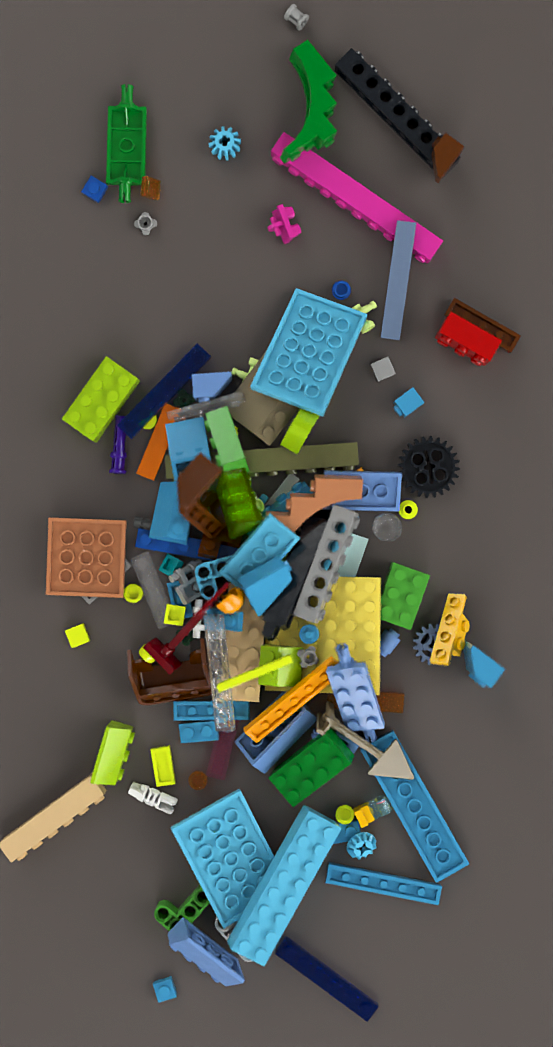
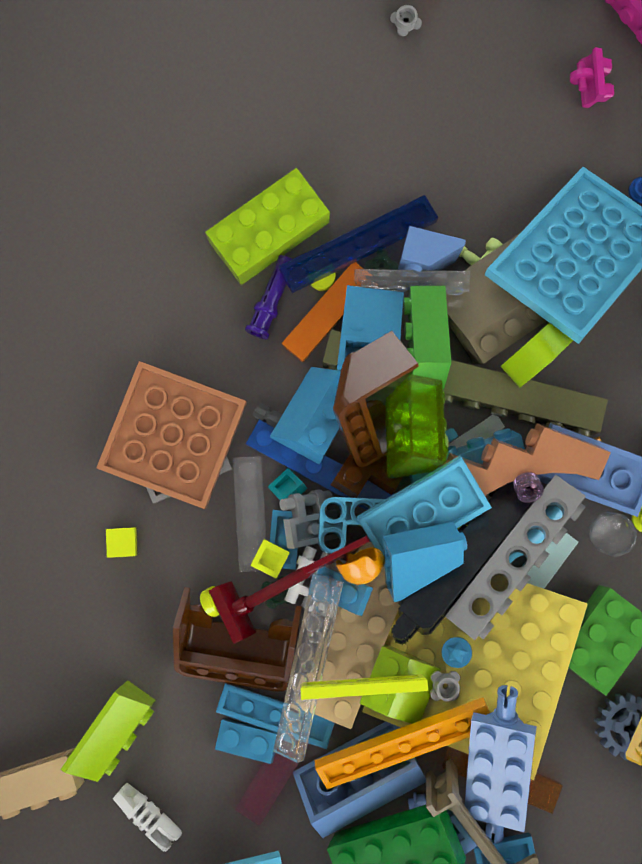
camera: 15 degrees right, 5 degrees down
(133, 593) = (221, 508): neon yellow tile -> none
(163, 766) = (177, 774): neon yellow tile -> none
(197, 780) = (221, 812): clear orange plate -> none
(318, 518) = (532, 493): none -> clear purple bush
(388, 641) = (568, 700): medium blue brick -> none

